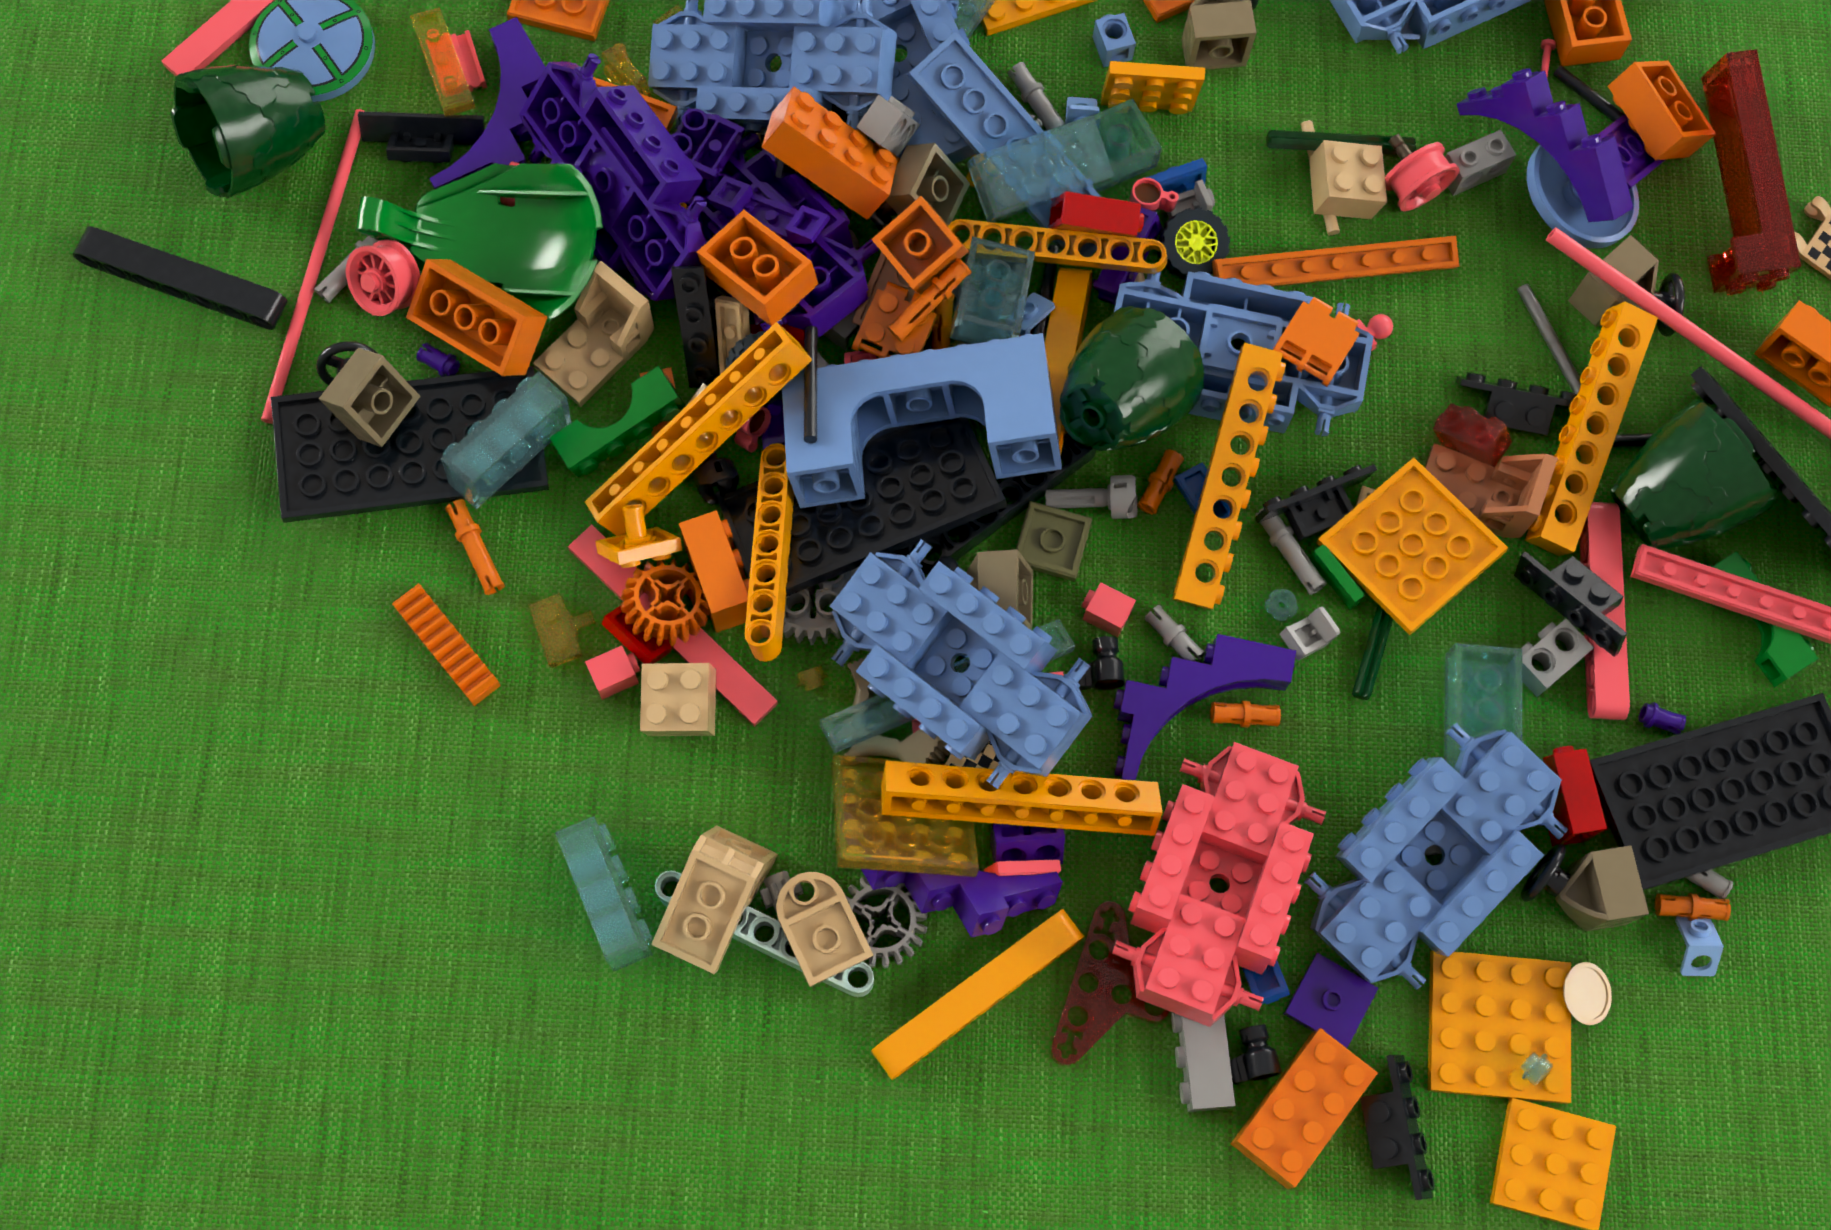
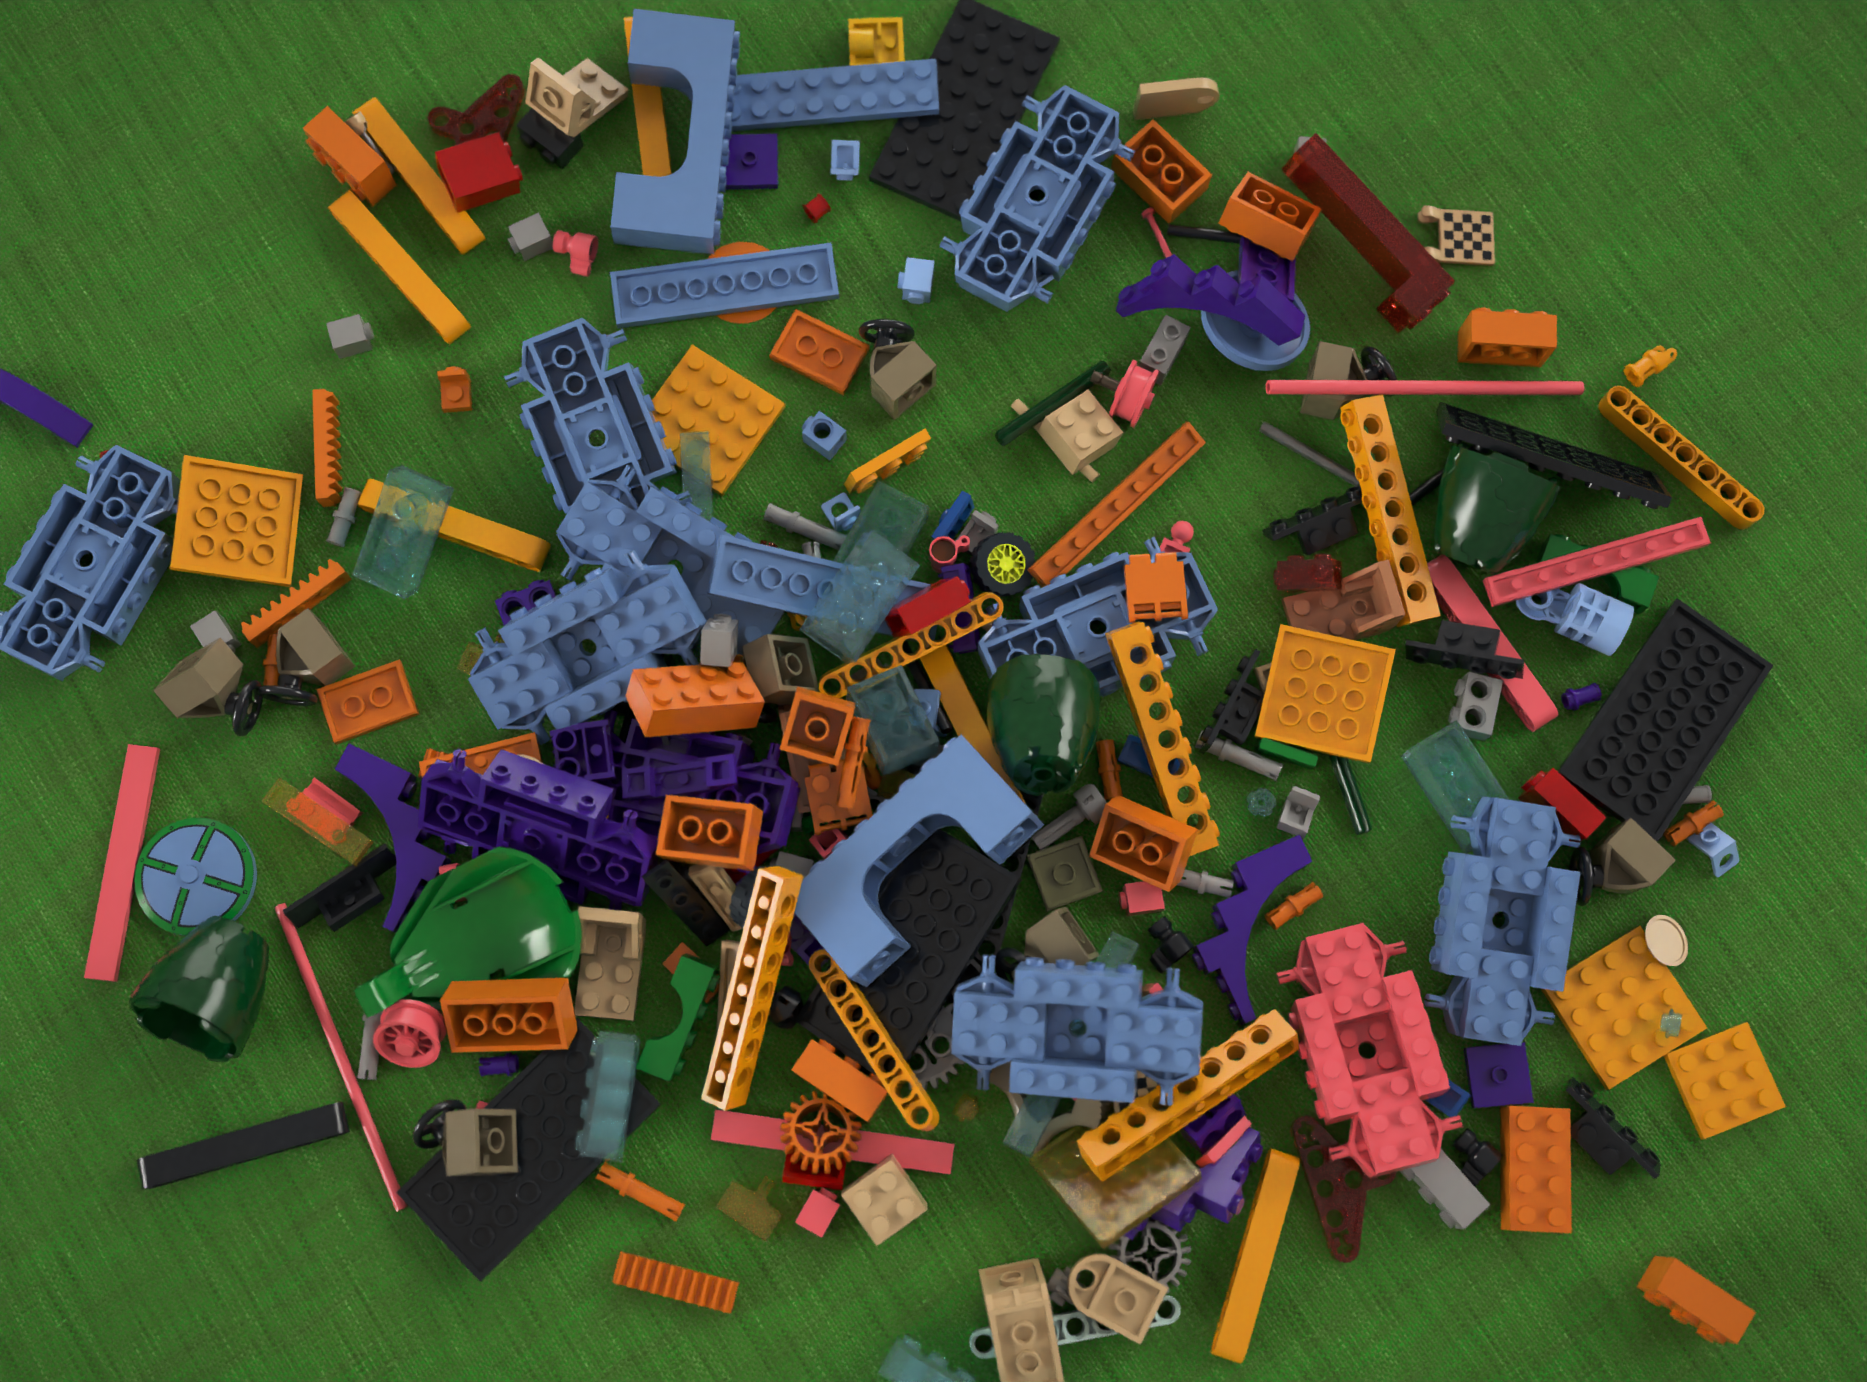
camera: 35 degrees left, 5 degrees up
(621, 70) = (464, 728): clear yellow plate -> none
(638, 542) = (767, 1103): light orange plate -> none
(810, 385) = (815, 895): black bar -> none
(1143, 555) = (1143, 843): none -> orange brick
(1717, 648) = (1583, 616): none -> light blue cylinder

